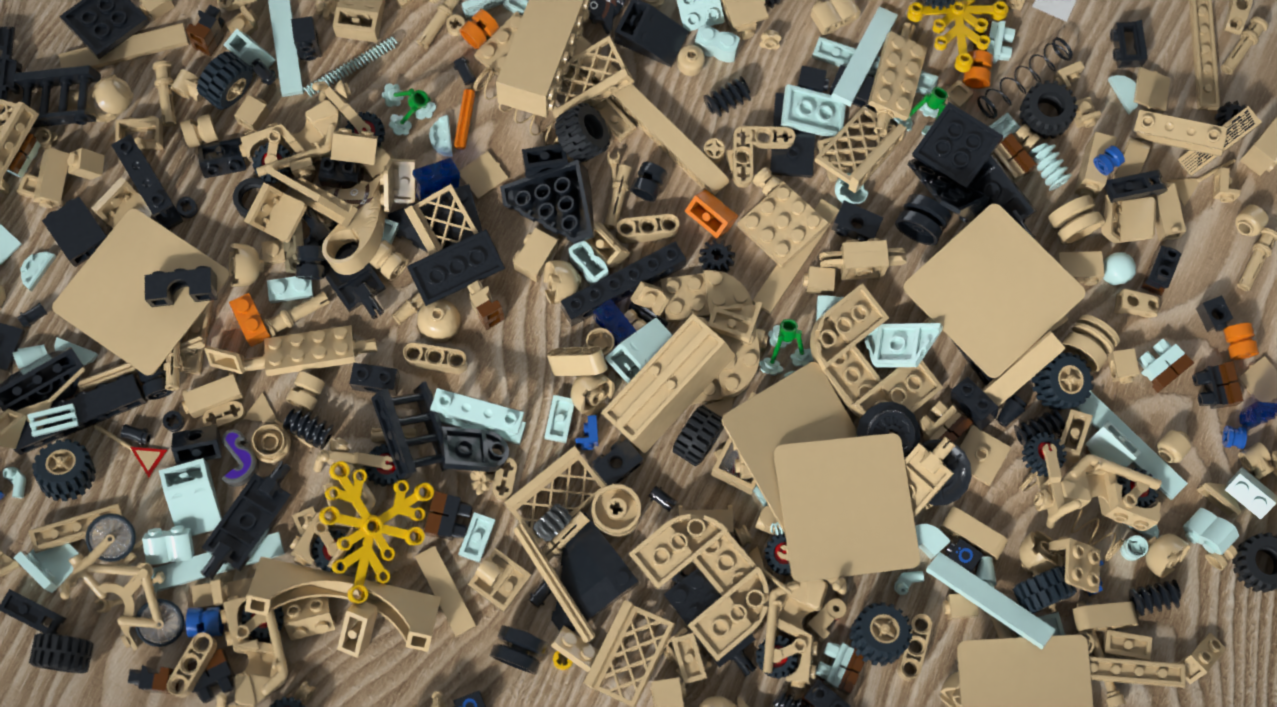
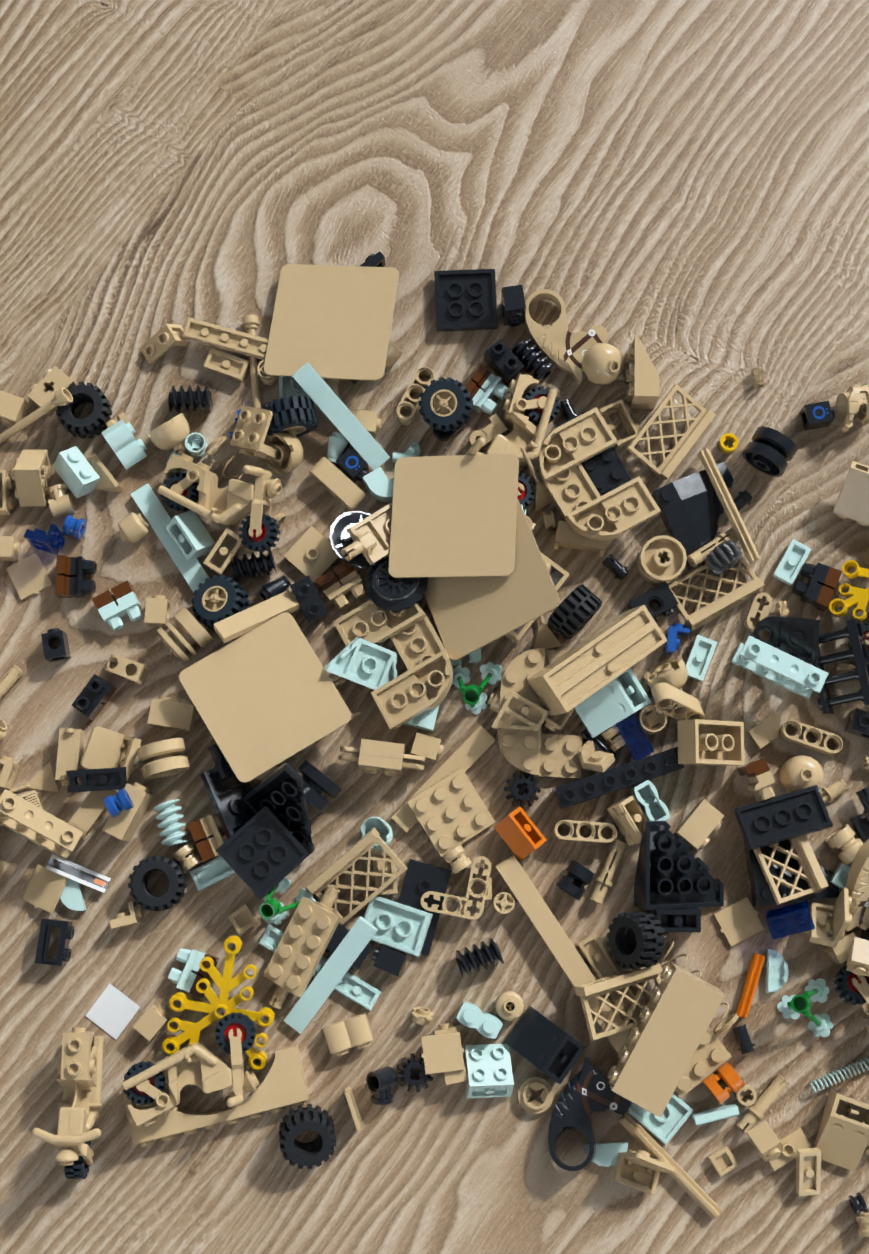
camera: 165 degrees left, 5 degrees up
(444, 587) = (825, 521): tan tile -> none
(480, 360) = (766, 730): none -> tan tile
(499, 579) = (775, 520): tan plate -> none
(538, 327) = (710, 742): none -> tan brick
(561, 280) = (678, 790): tan cylinder -> none
(575, 648) = (720, 449): tan plate -> none
(613, 163) = (606, 906): tan hand -> none
(688, 658) = (620, 414): tan plate -> none
(851, 213) = (365, 793): black brick -> none
(979, 75) = (218, 933): orange wheel -> none
(988, 101) = (121, 941): black piece -> none
(1086, 113) = (119, 876): tan bracket -> none
(1105, 617) = (240, 389): tan beam -> none
(1119, 268) = (133, 709): light aqua hair -> none
(1123, 106) = (78, 873): none -> sticker
(1241, 341) = (40, 611): orange wheel -> none

